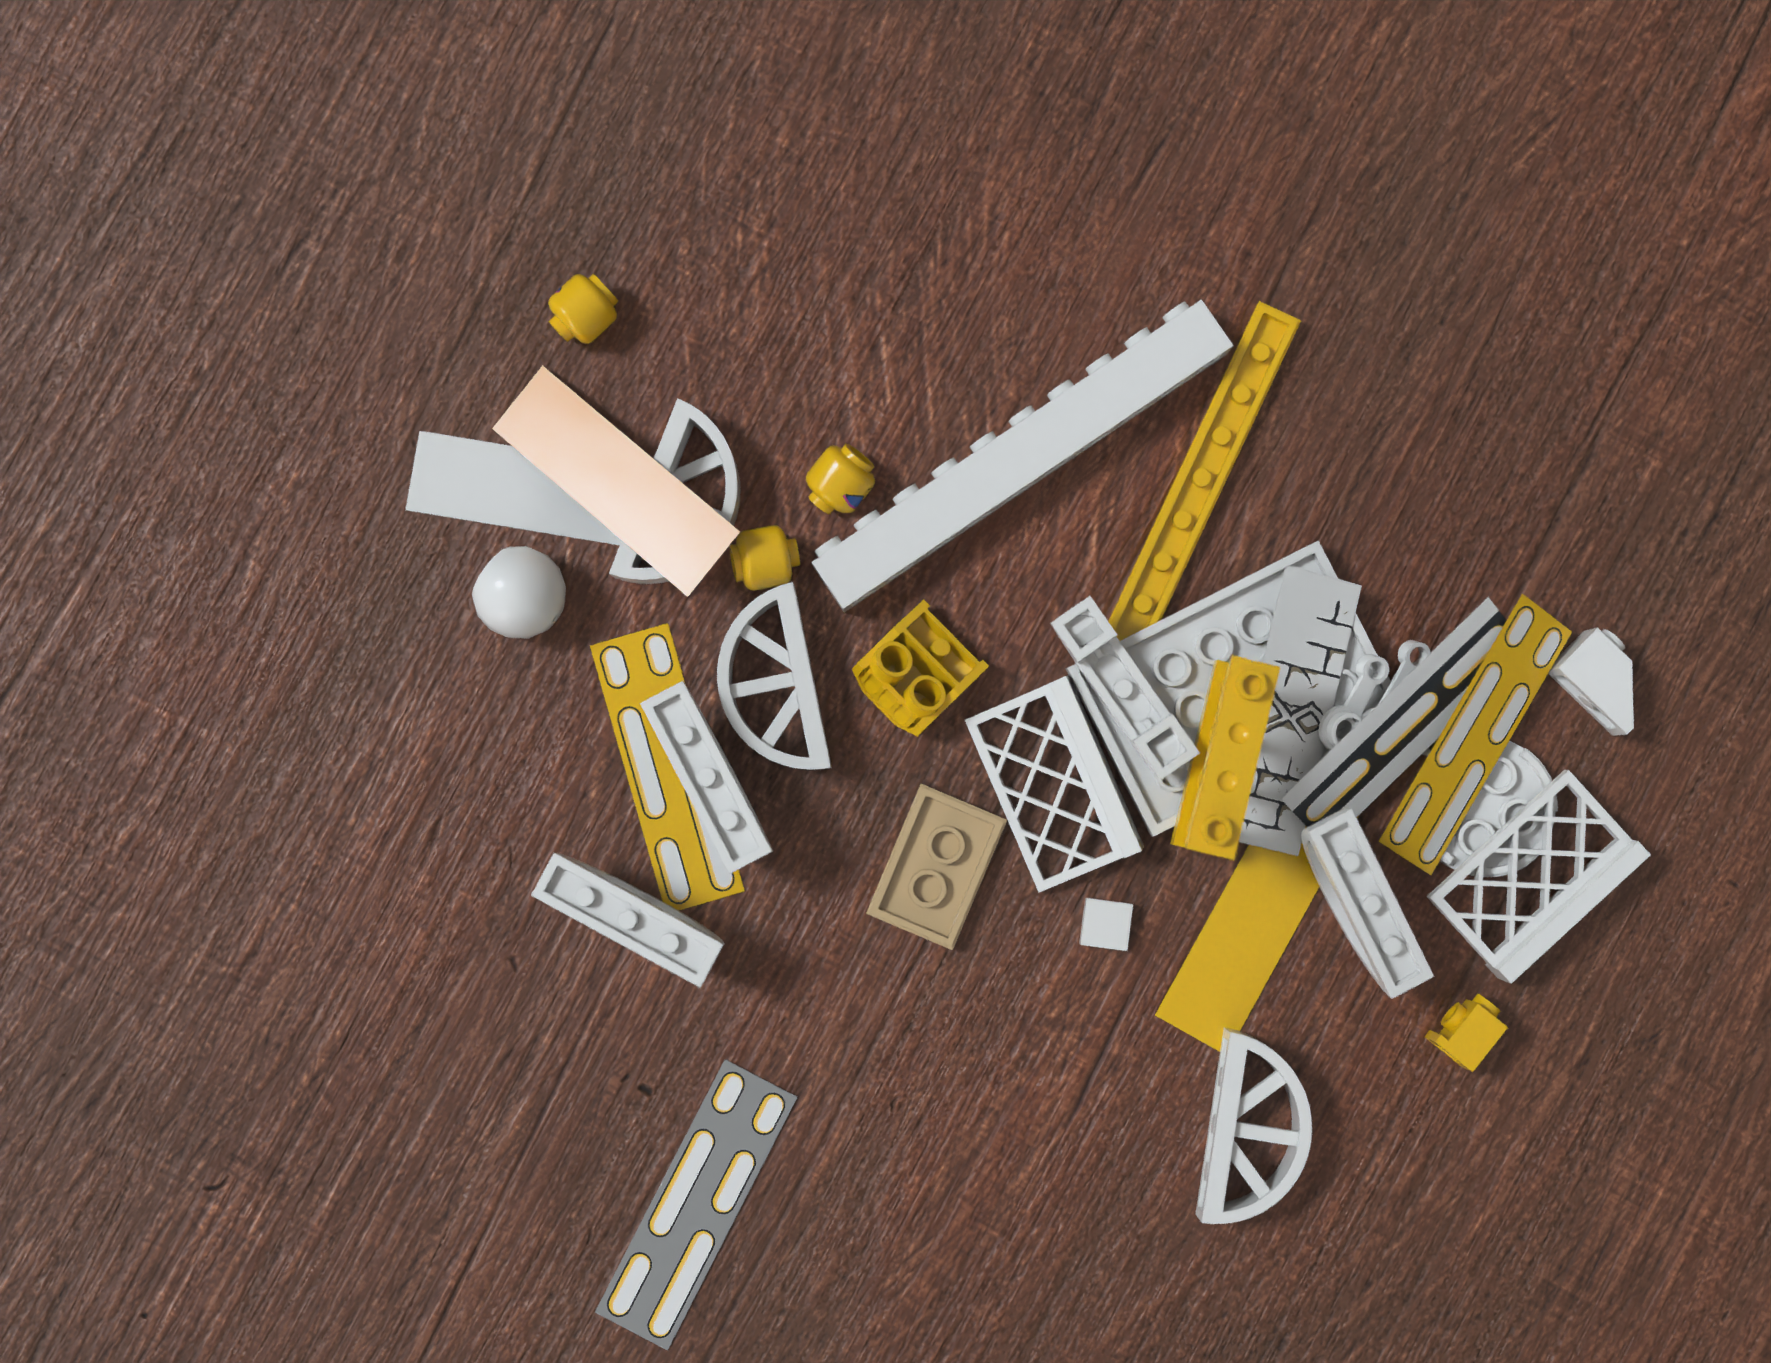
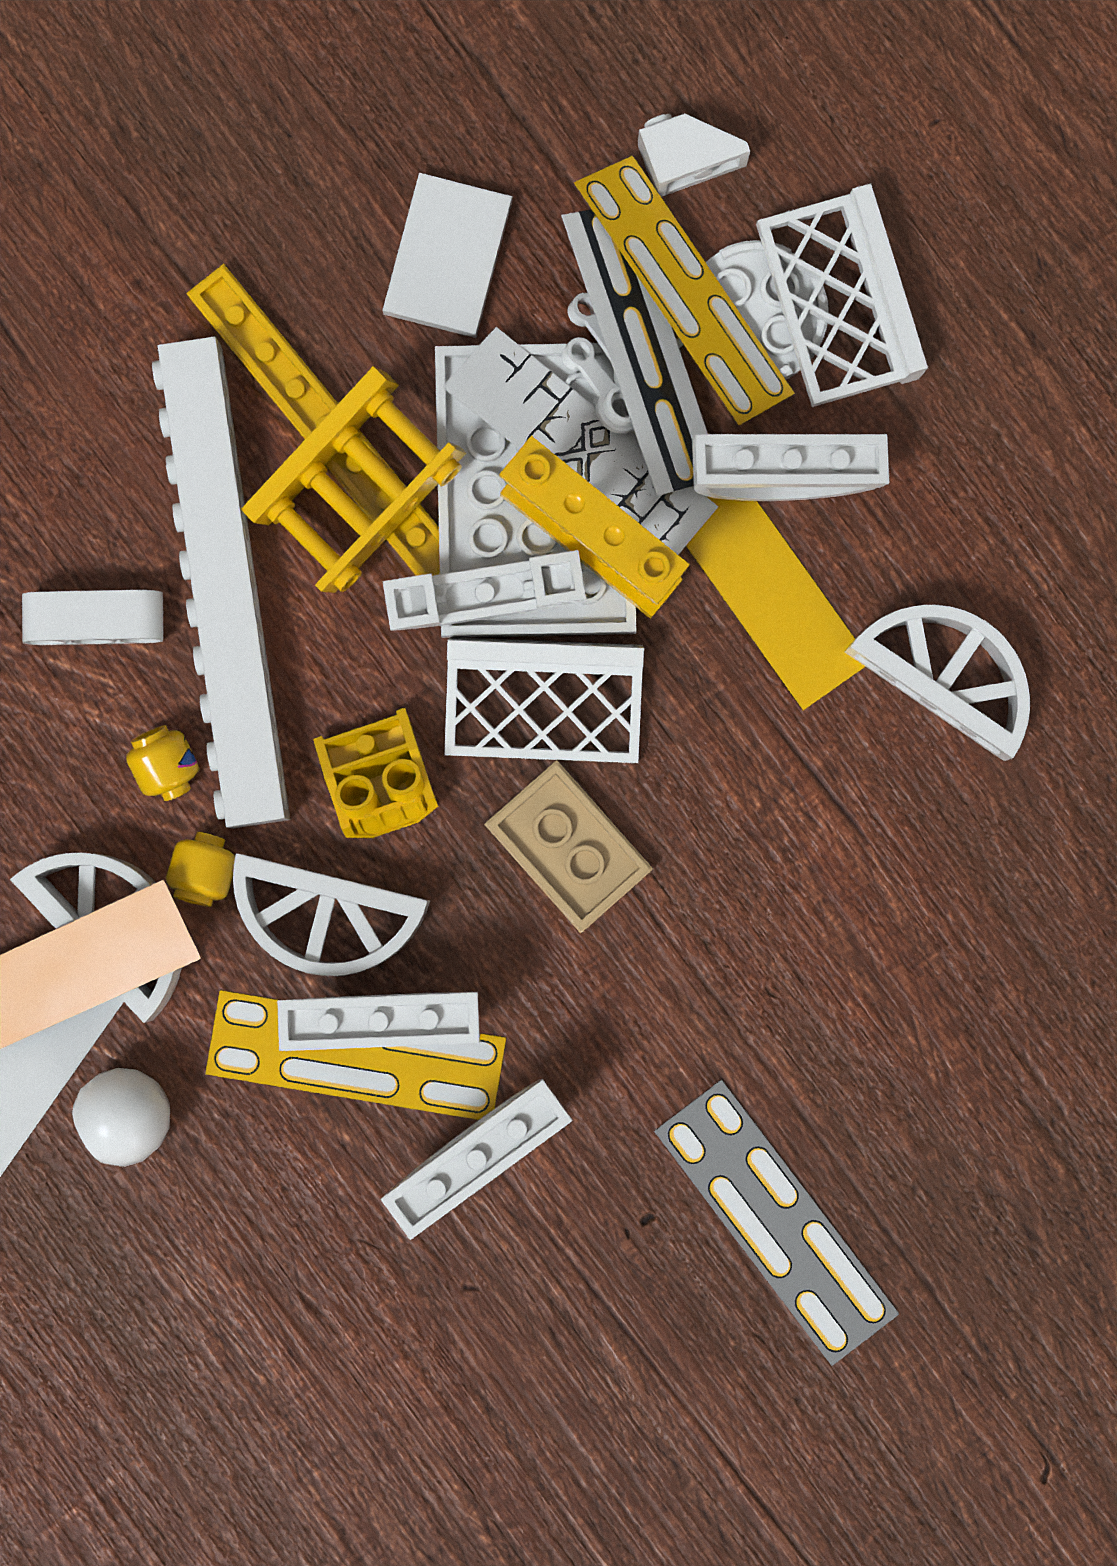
camera: 65 degrees left, 0 degrees up
(937, 358) = (92, 617): none -> white beam
(1106, 924) = (697, 714): white tile -> none
(1200, 496) = (308, 469): none -> yellow fence
(1404, 511) = (447, 255): none -> white tile
(1468, 1032) = (954, 428): yellow brick -> none

